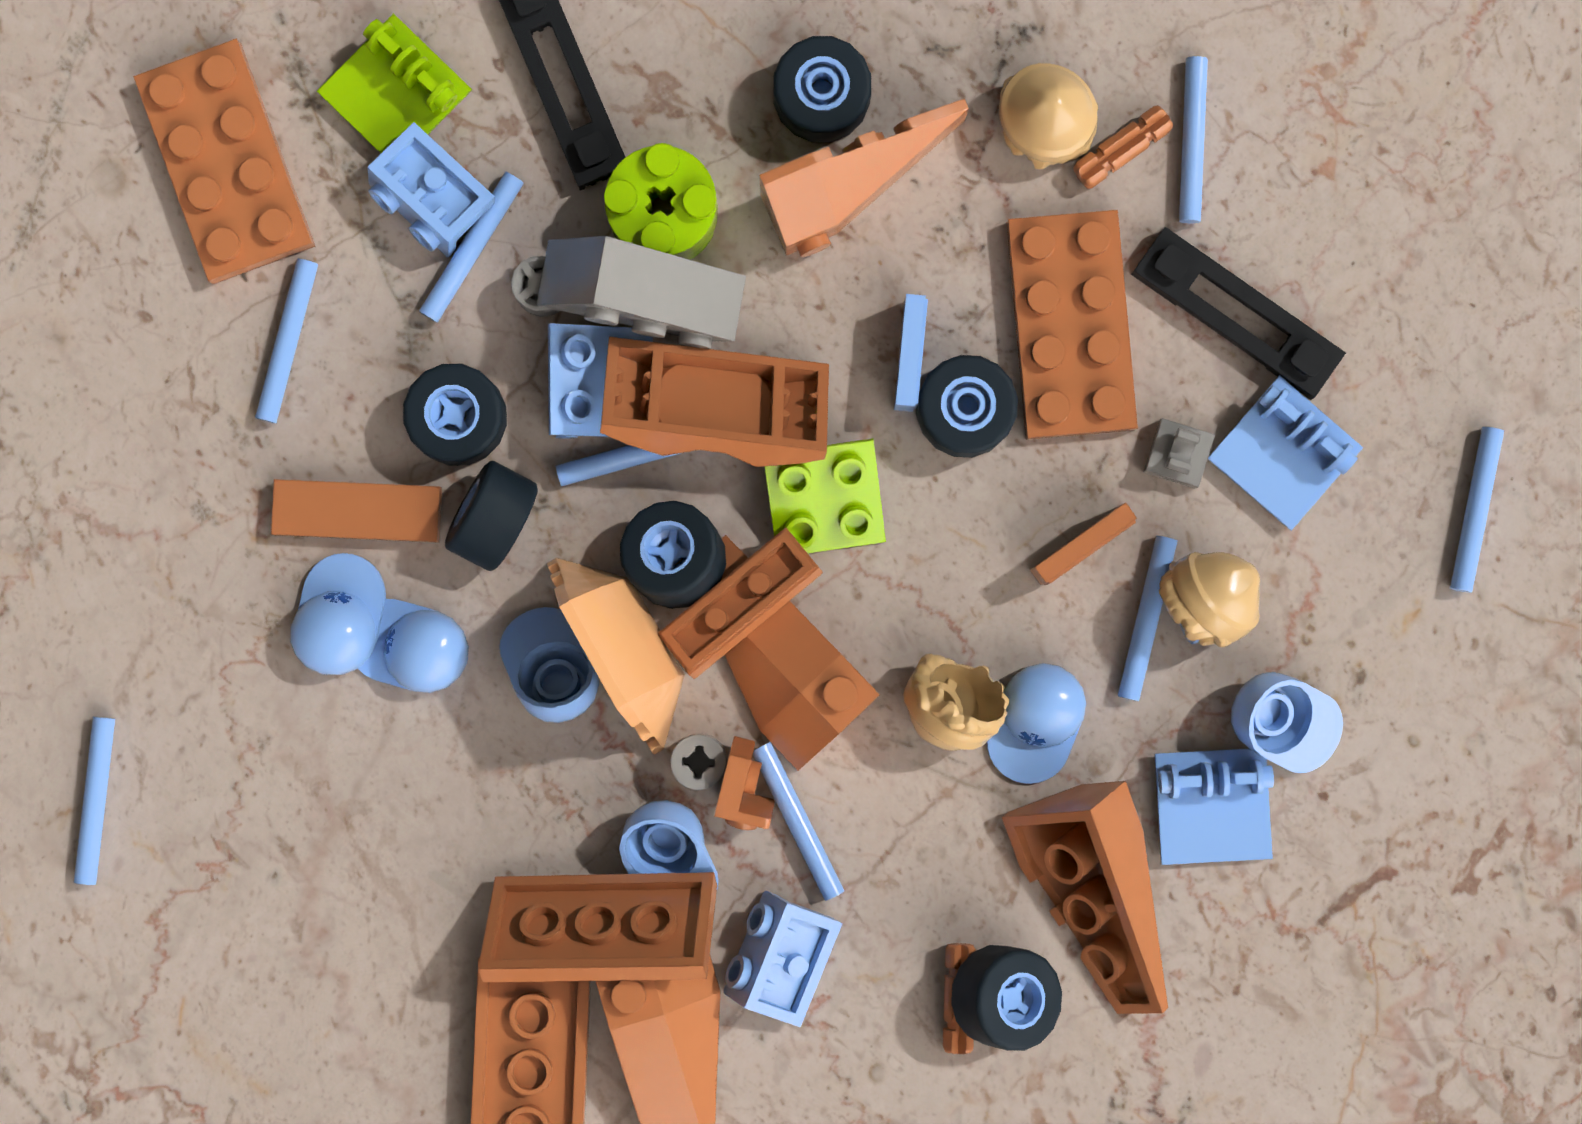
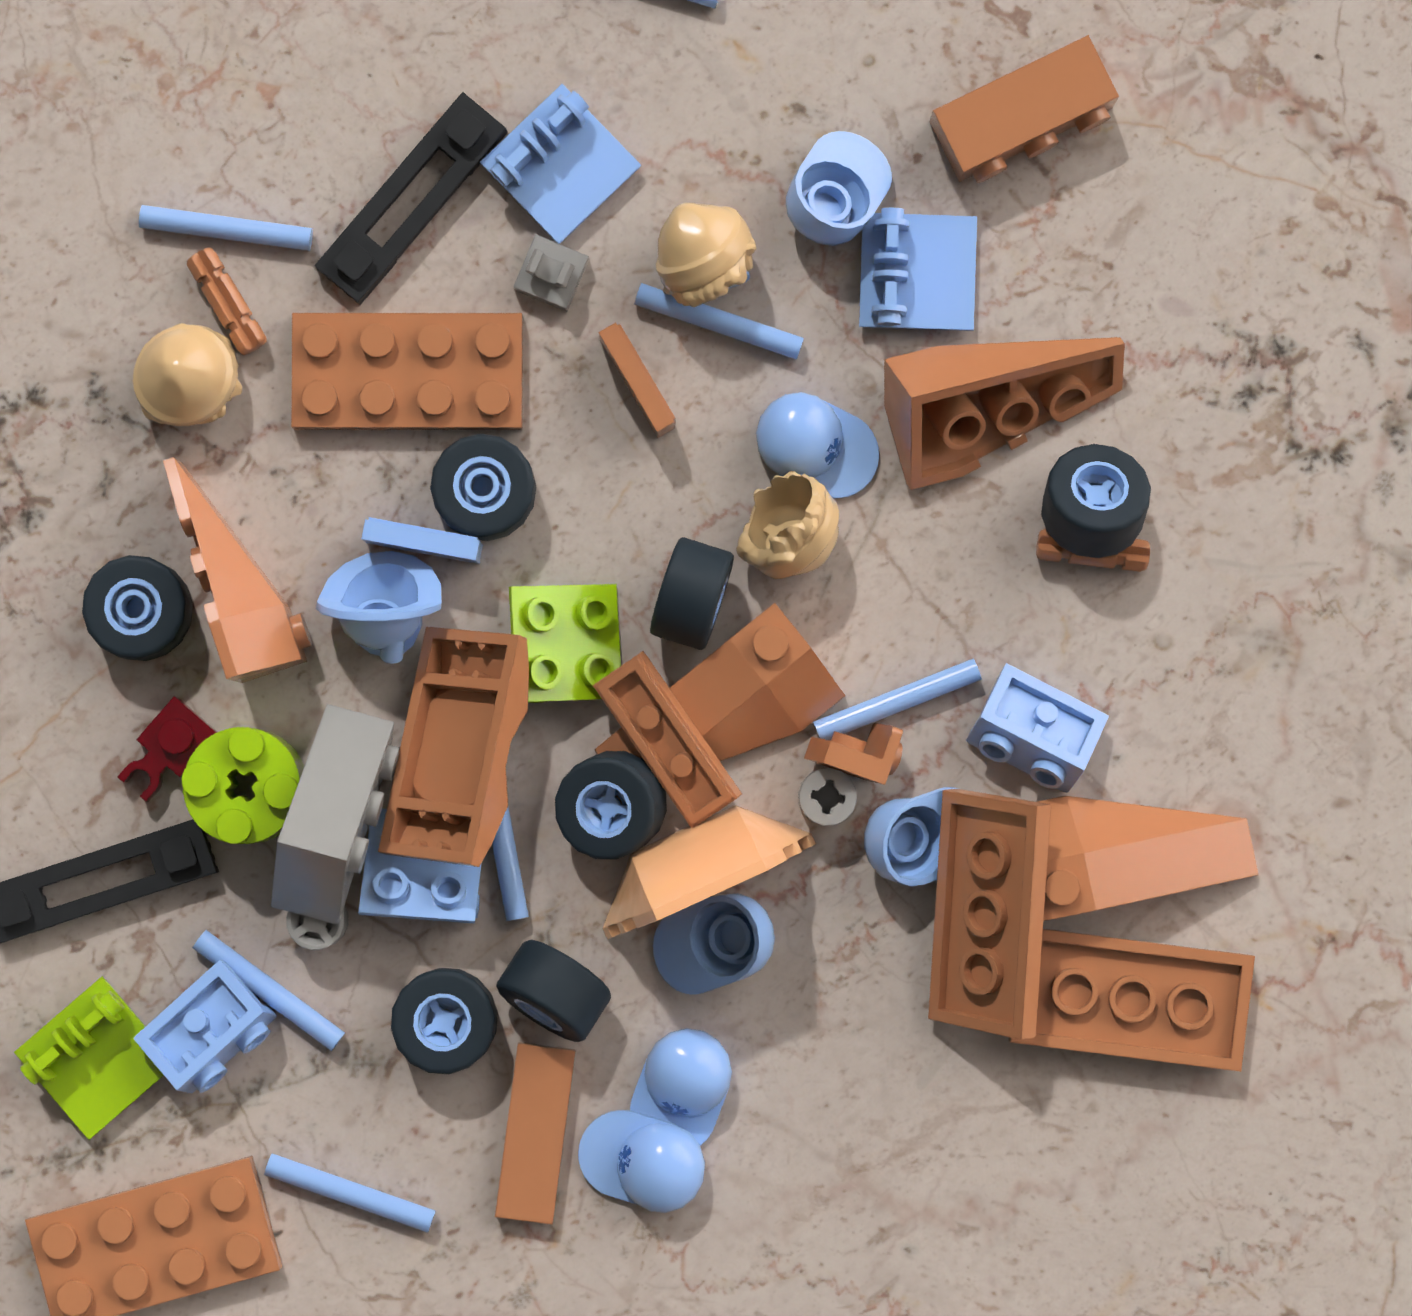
camera: 85 degrees left, 0 degrees up
(696, 132) = (170, 743): none -> dark red plate
(849, 319) = (382, 601): none -> light blue helmet
(882, 614) = (691, 593): none -> black wheel
(1380, 897) = (1025, 111): none -> nougat brick

